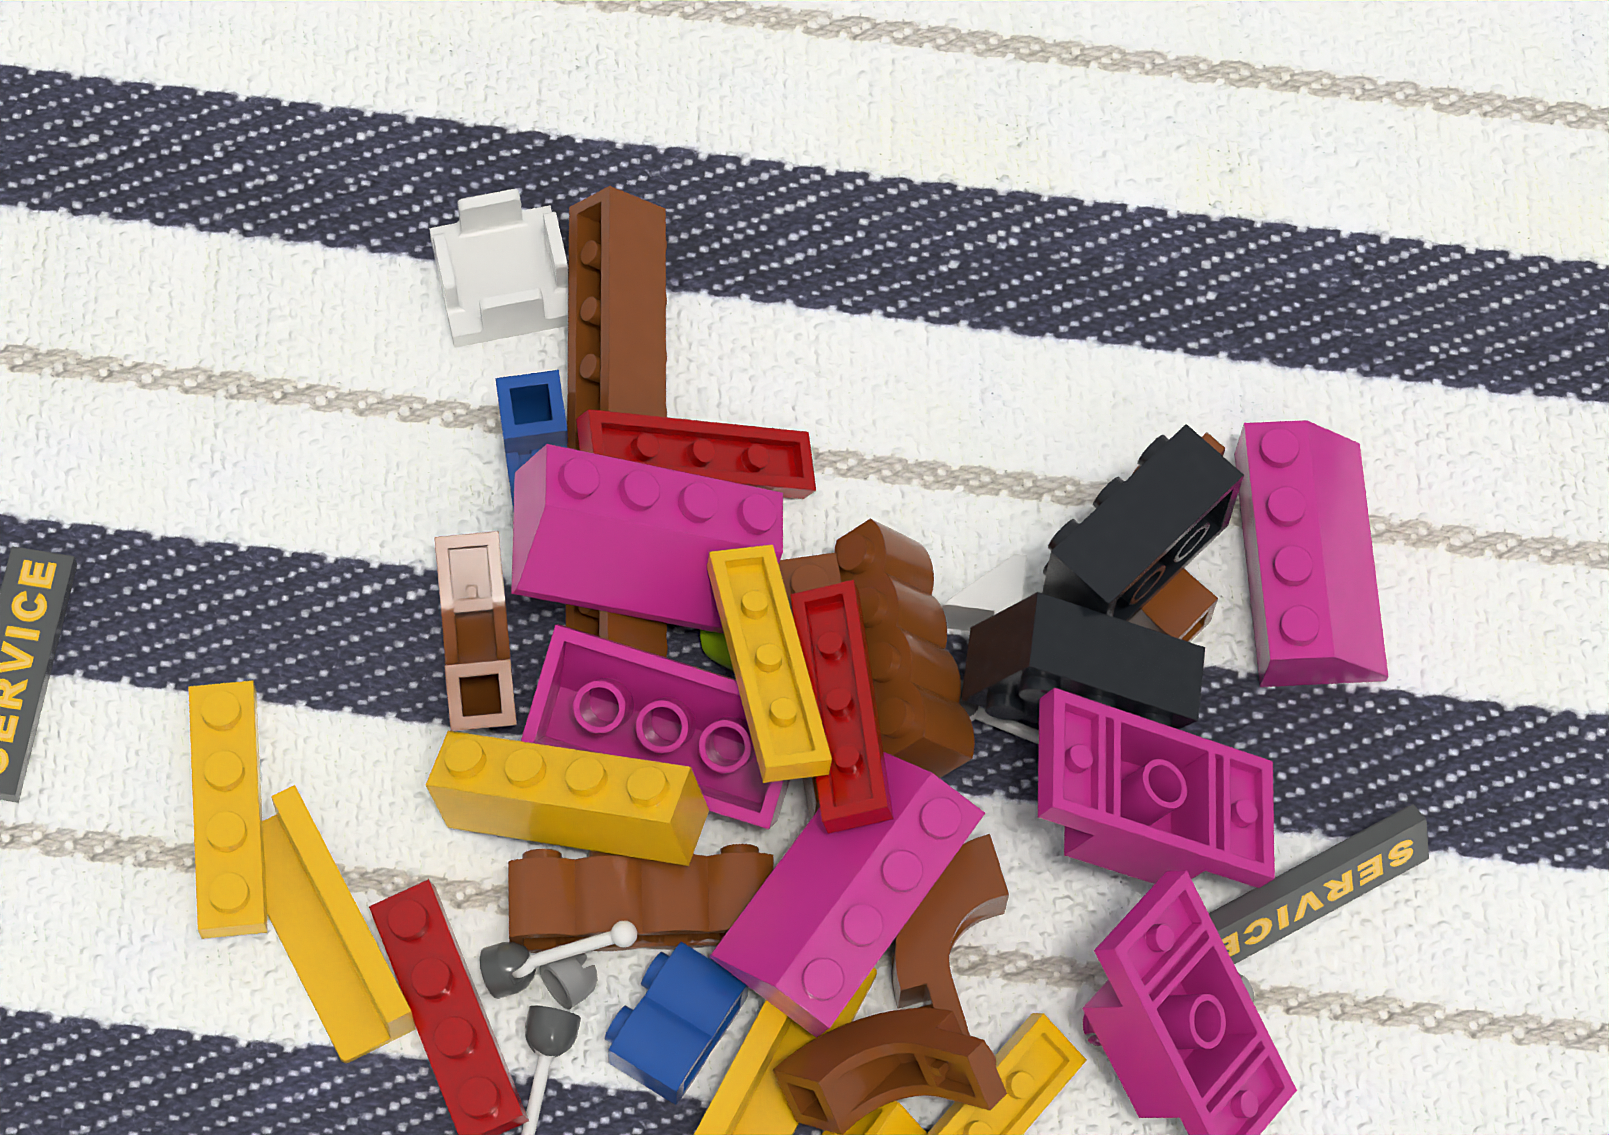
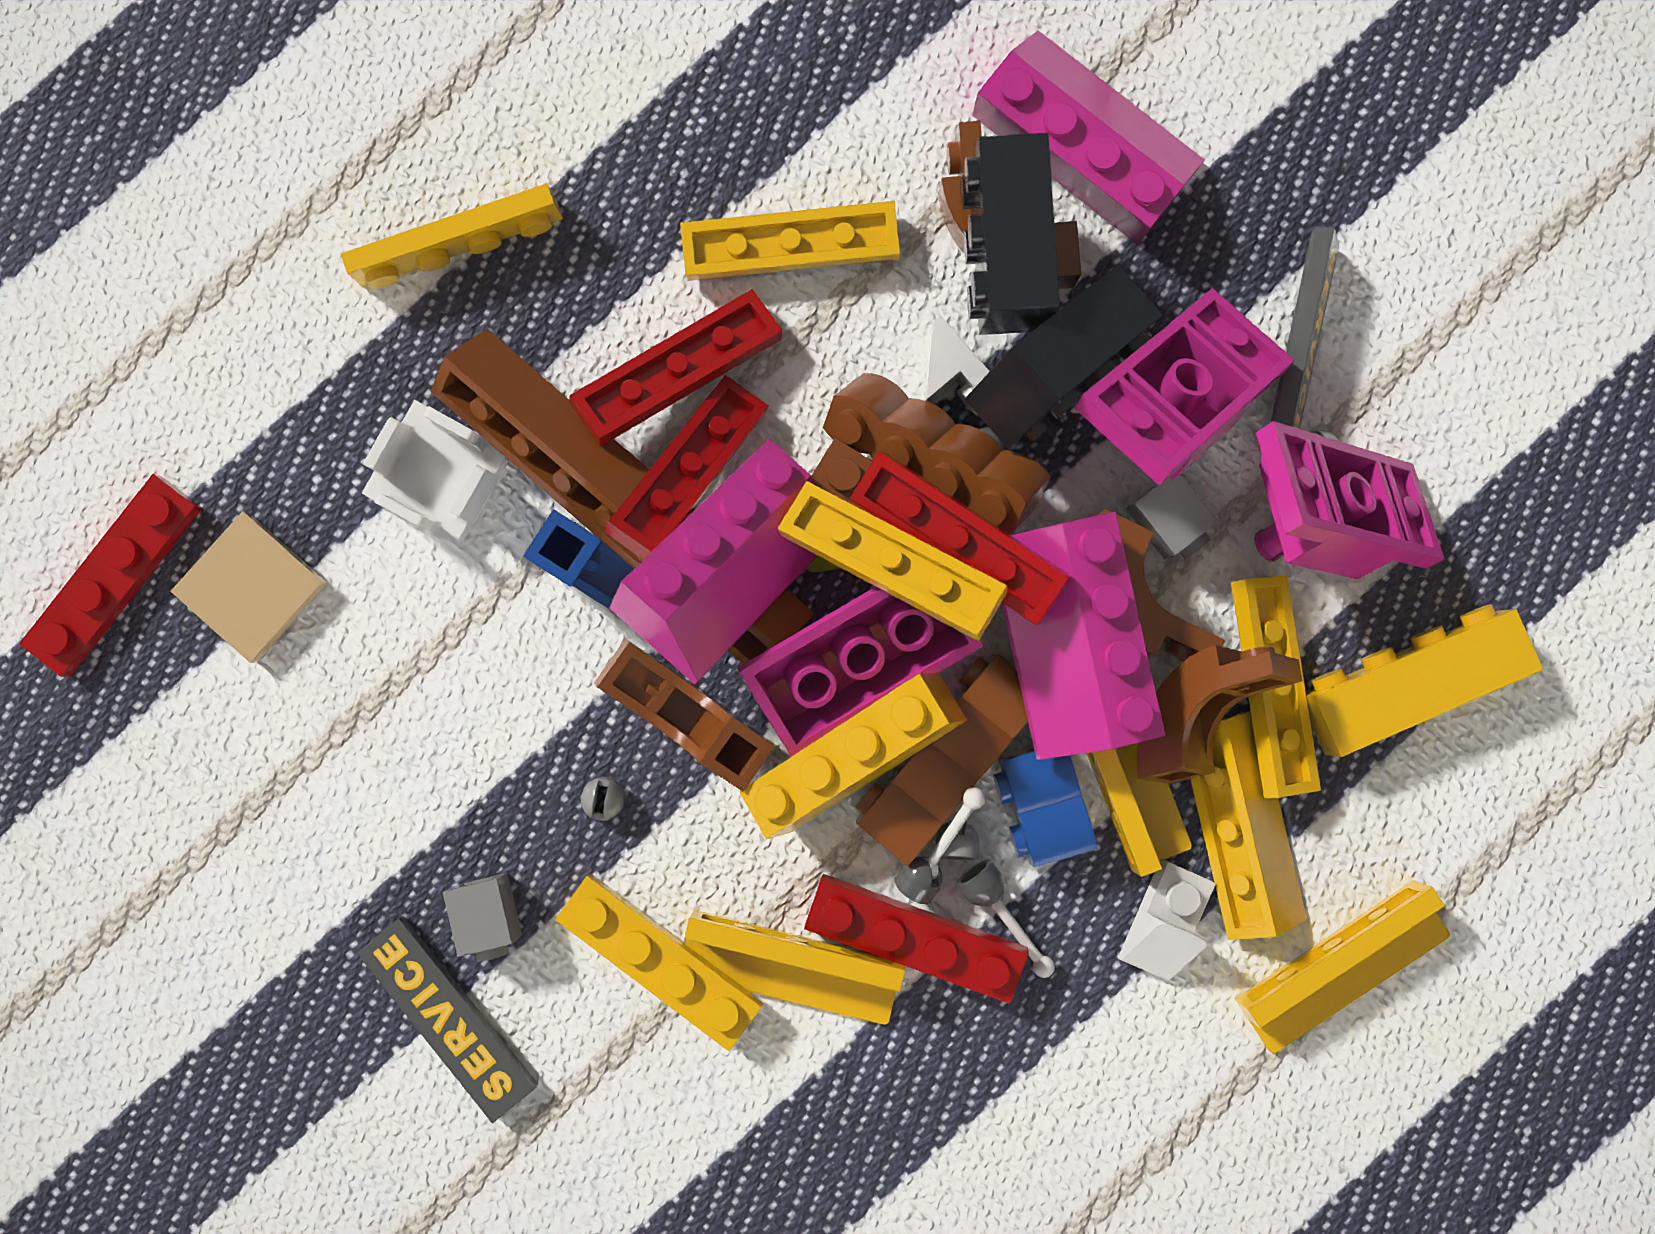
camera: 40 degrees left, 20 degrees up
(139, 622) = (483, 917): none -> light grey brick
(174, 94) = (110, 576): none -> red plate
(263, 208) = (249, 587): none -> tan tile
(341, 649) = (614, 799): none -> light grey hinge
(732, 129) = (434, 243): none -> yellow plate
(776, 382) = (675, 367): none -> red plate
(976, 390) = (790, 240): none -> yellow plate
(1042, 910) = (1174, 516): none -> light grey brick

